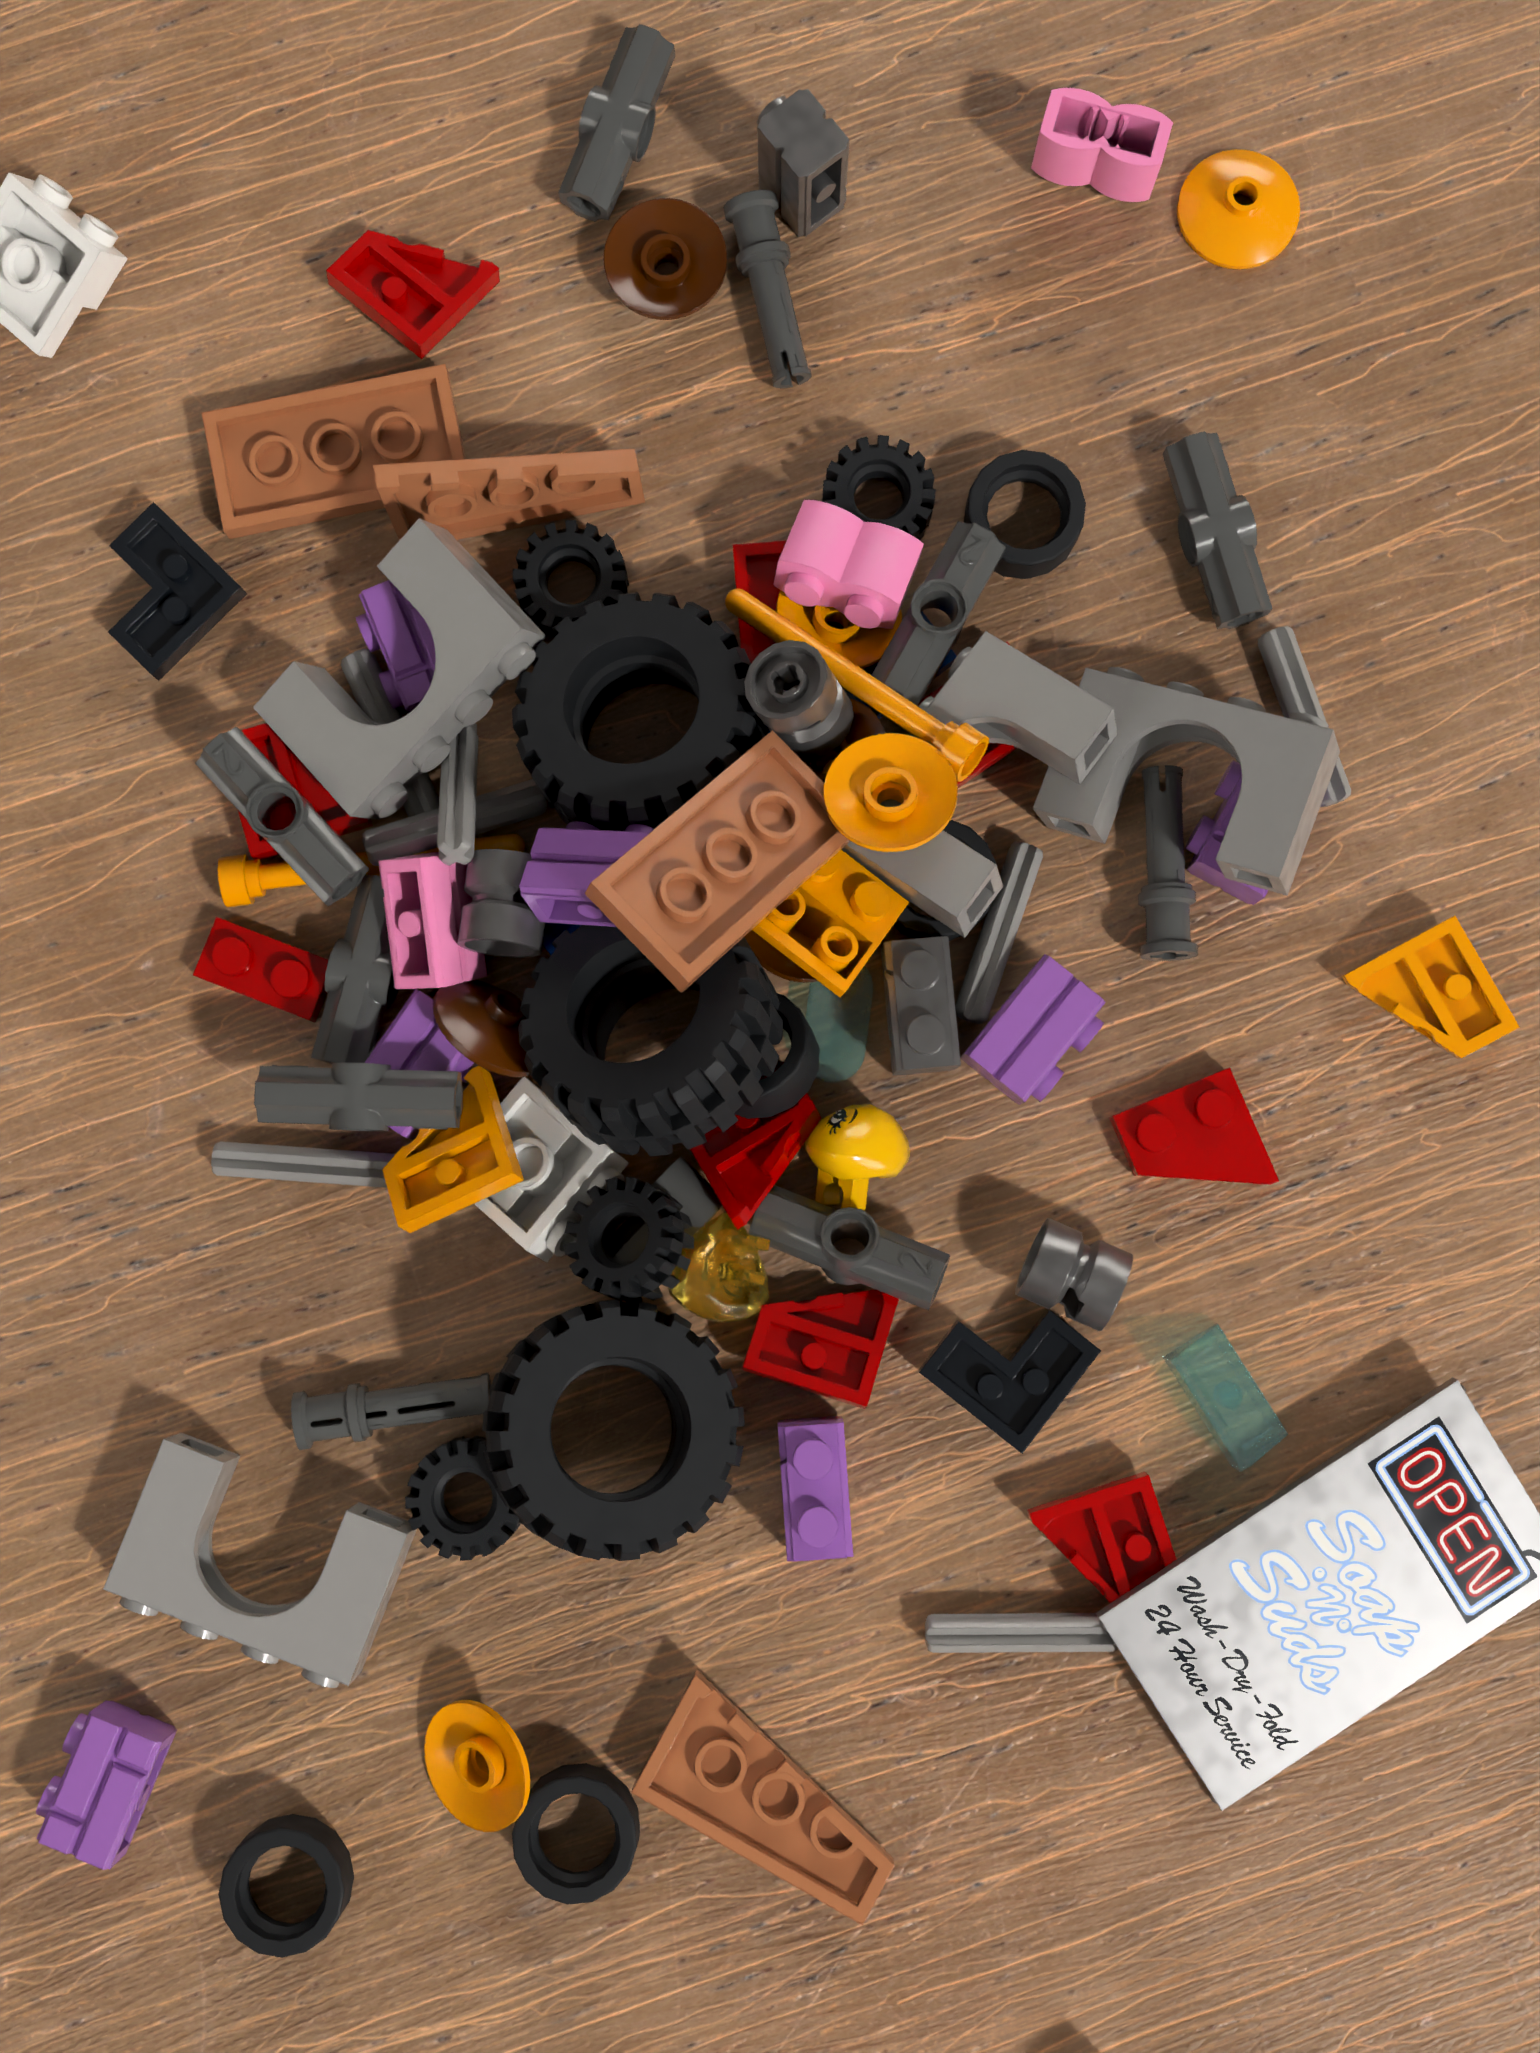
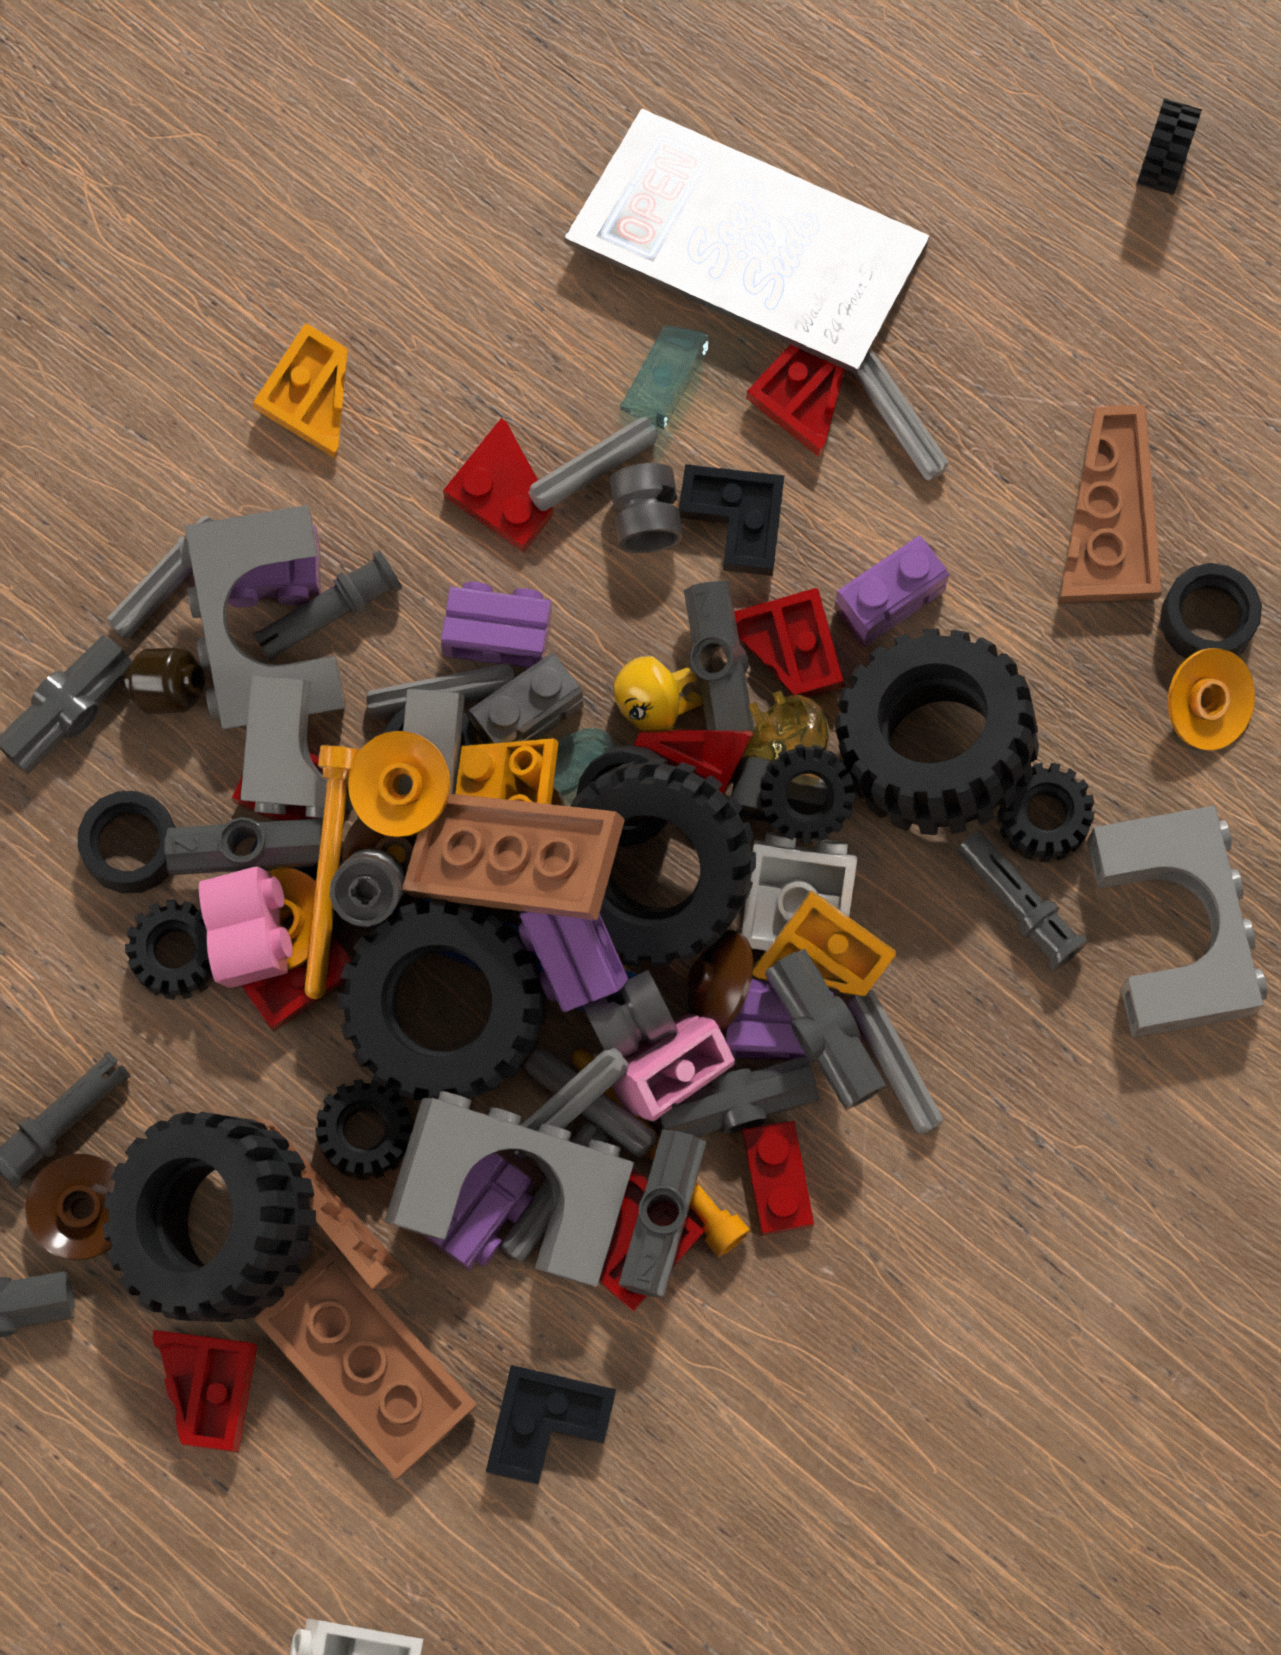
camera: 125 degrees left, 10 degrees down
(568, 301) = (153, 1207): none -> black tyre
(1163, 1250) = (593, 463): none -> light grey axle
(1180, 641) = (164, 680): none -> dark brown head

